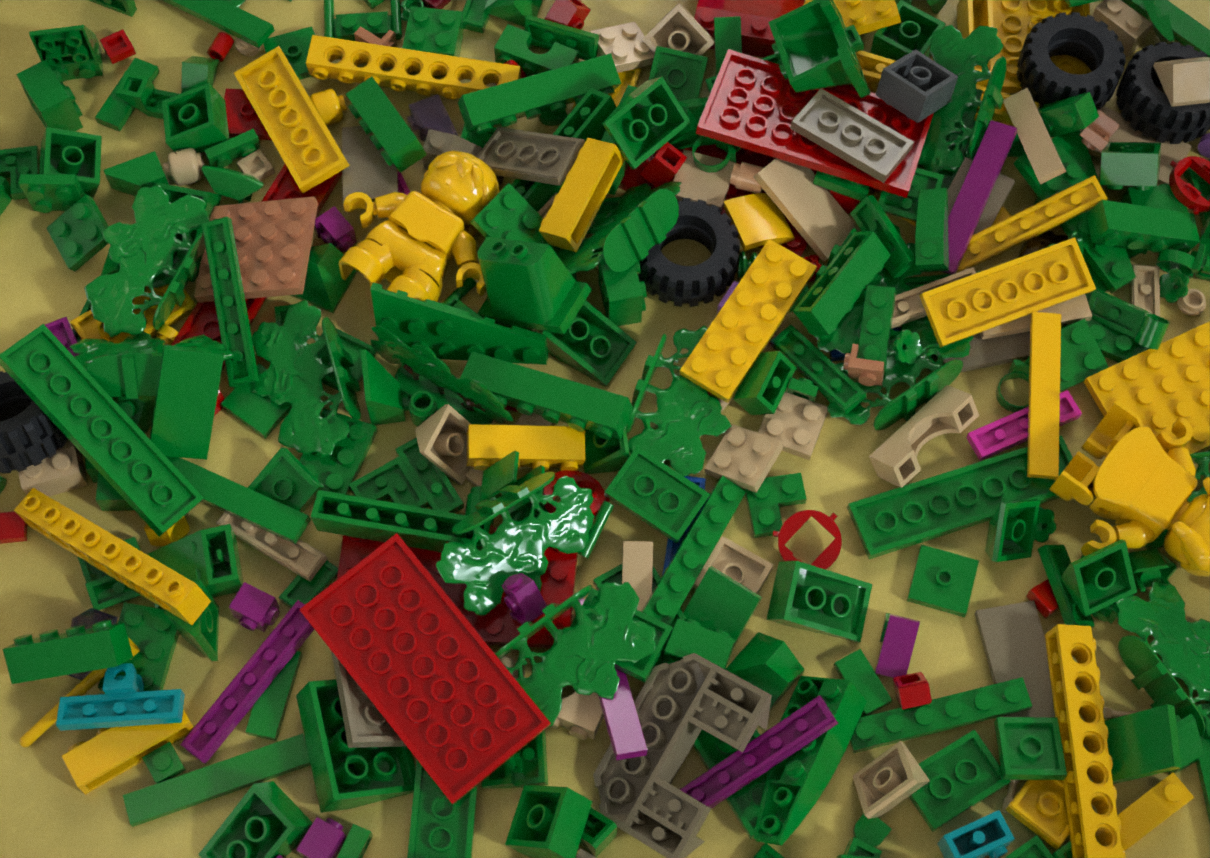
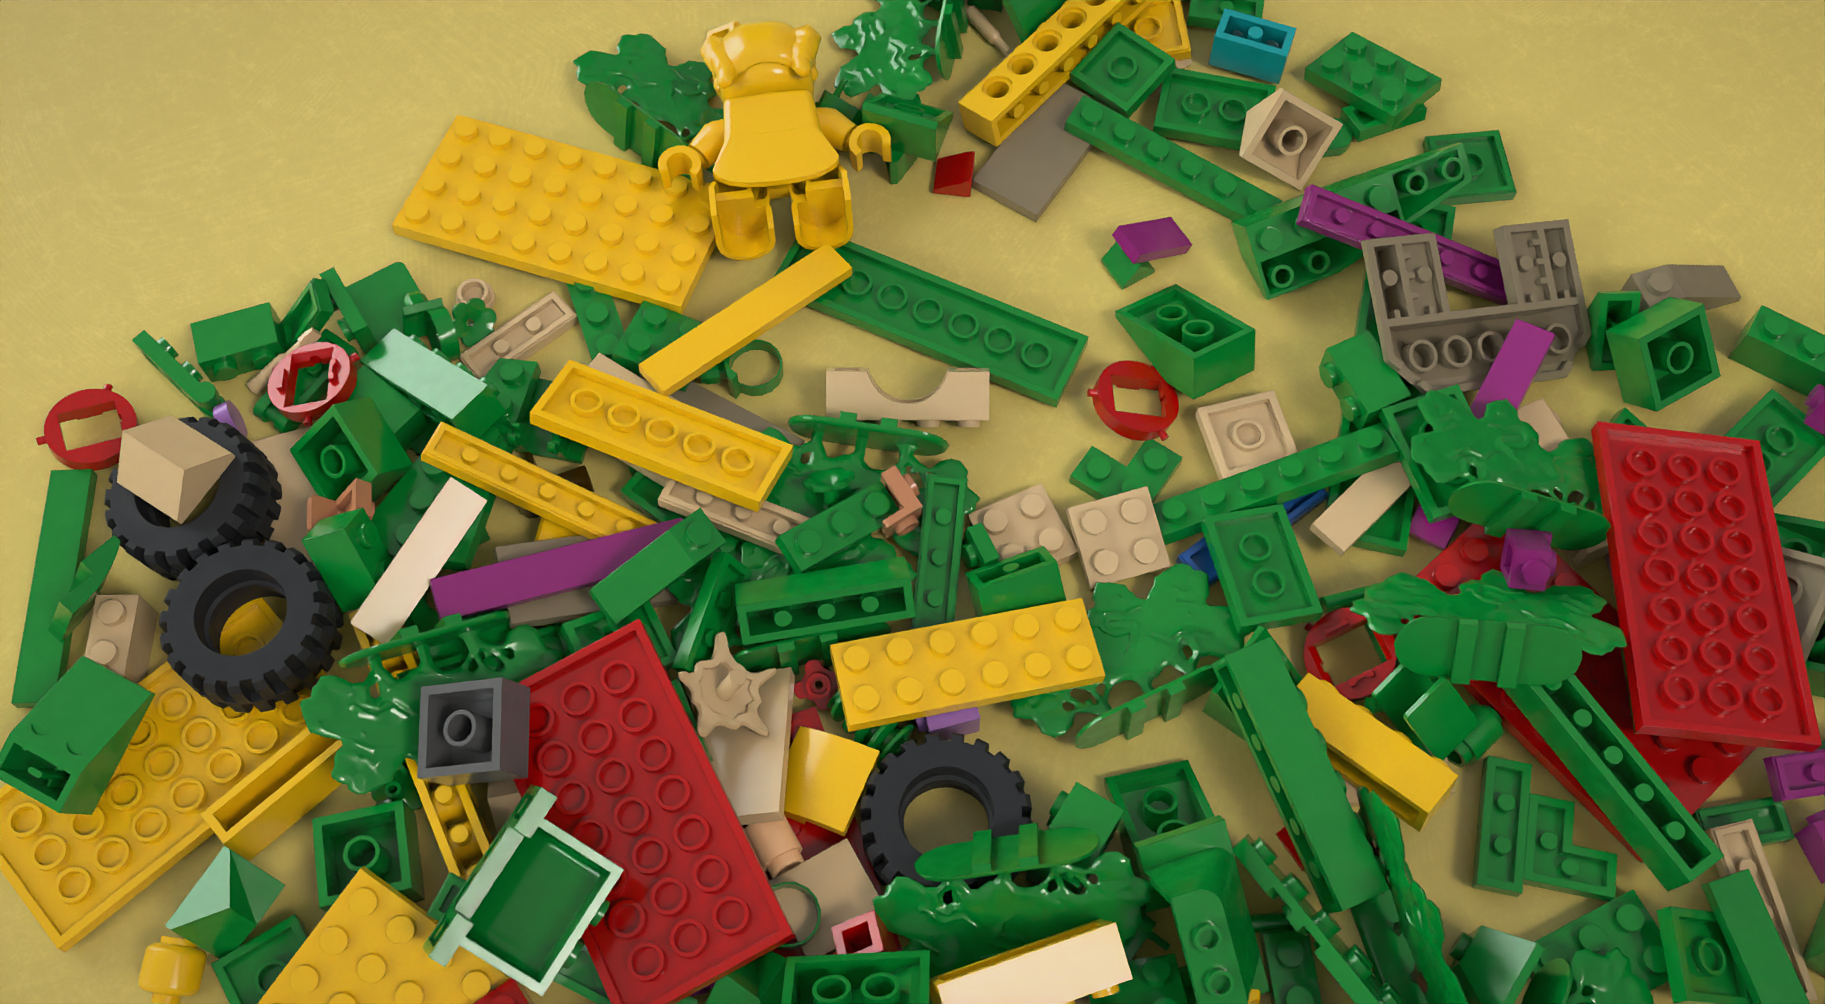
camera: 135 degrees left, 0 degrees up
(422, 406) = (1456, 905): green brick -> none
(444, 442) = (1457, 843): tan slope -> none
(722, 604) = (1292, 409): green tile -> none
(767, 665) = (1297, 329): green slope -> none
(838, 208) = (725, 691): none -> tan piece
(852, 135) = (625, 741): dark tan plate -> none
(860, 672) = (1211, 250): green tile -> none
(912, 690) = (1178, 196): red slope -> none
(943, 580) = (1036, 267): green plate -> none
(1012, 530) = (934, 242): green slope -> none
(1014, 429) = (811, 334): dark pink plate -> none
(1045, 525) = (888, 230): green plant -> none
(1055, 562) = (924, 175): green tile -> none
(1129, 319) = (562, 295): green plate -> none

